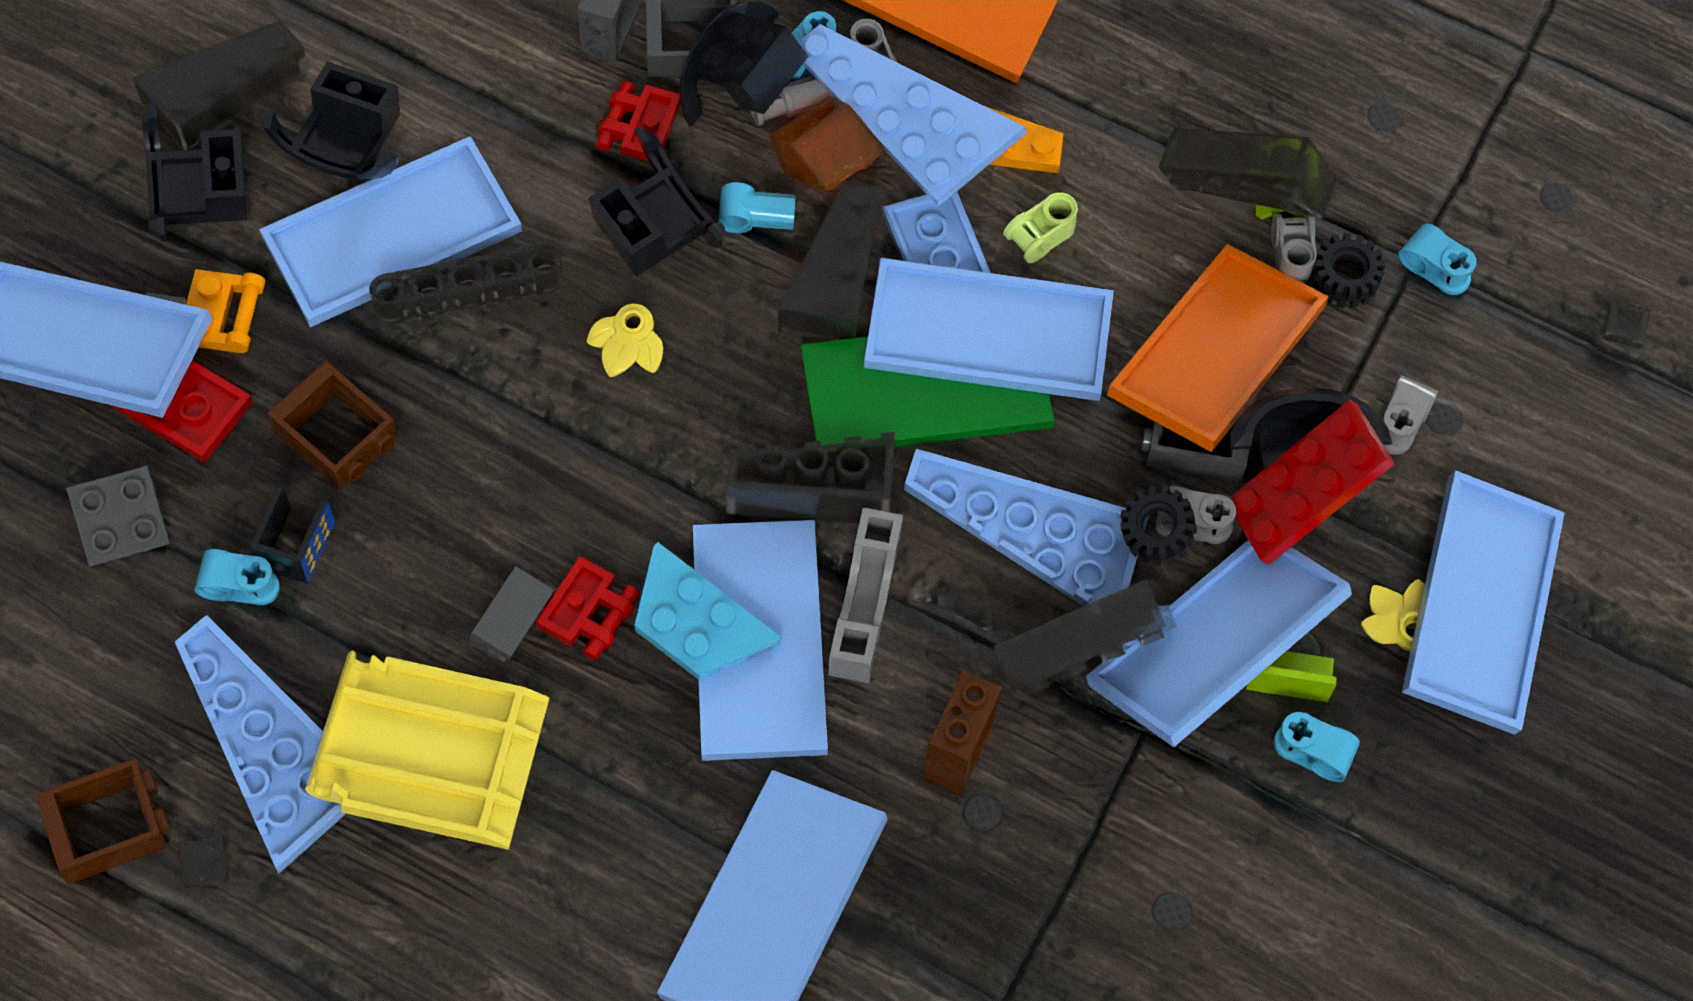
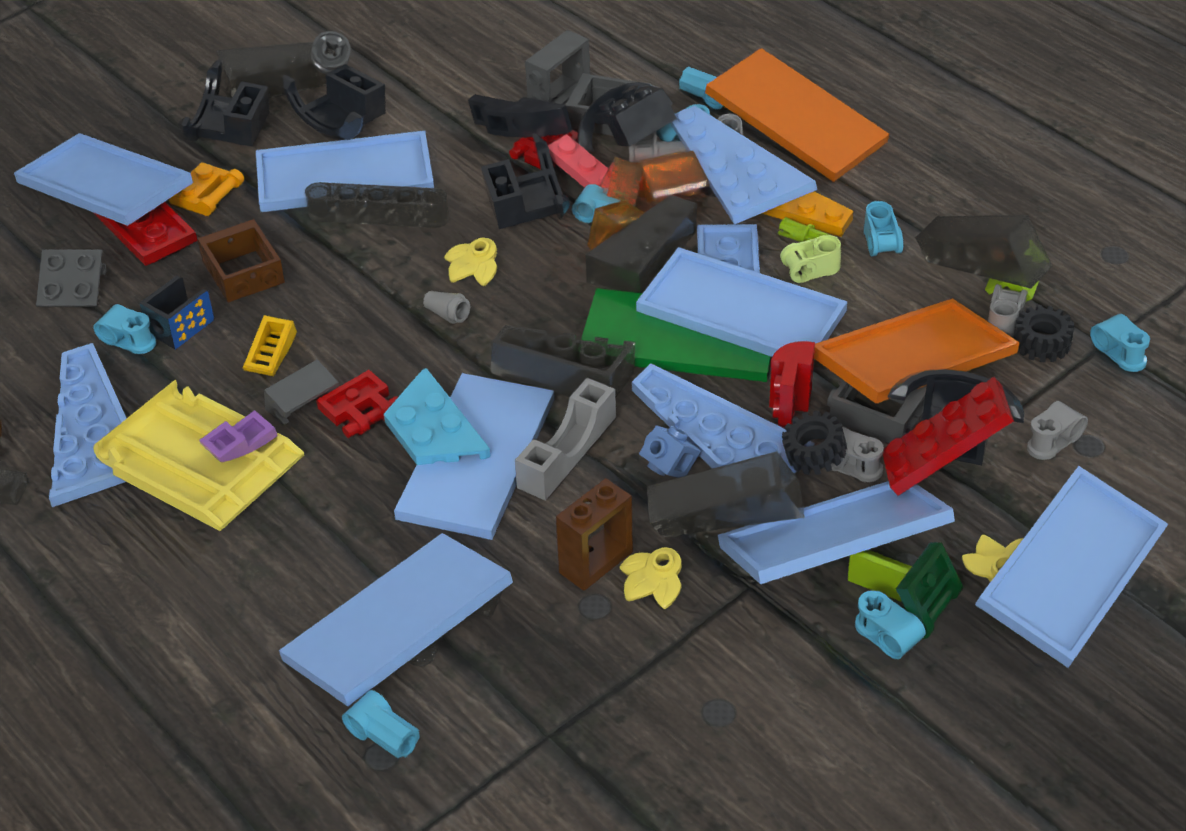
camera: 25 degrees right, 20 degrees down
(284, 50) = (330, 40): none -> dark grey wheel
(432, 518) = (268, 327): none -> yellow slope
(473, 713) = (234, 441): none -> medium lavender slope
(600, 94) = (521, 117): none -> black slope
(630, 424) = (449, 306): none -> light grey cone
(709, 150) = (577, 161): none -> coral plate
(778, 180) = (622, 180): none -> clear orange slope
(788, 244) = (610, 220): none -> clear orange slope
(990, 578) = (669, 451): none -> medium blue brick
(1018, 186) = (798, 231): none -> lime axle
(1035, 761) = (649, 578): none -> light yellow plate
(1098, 440) = (791, 380): none -> red brick
(1113, 164) = (882, 229): none -> medium azure piece
(1348, 686) = (930, 586): none -> dark green plate

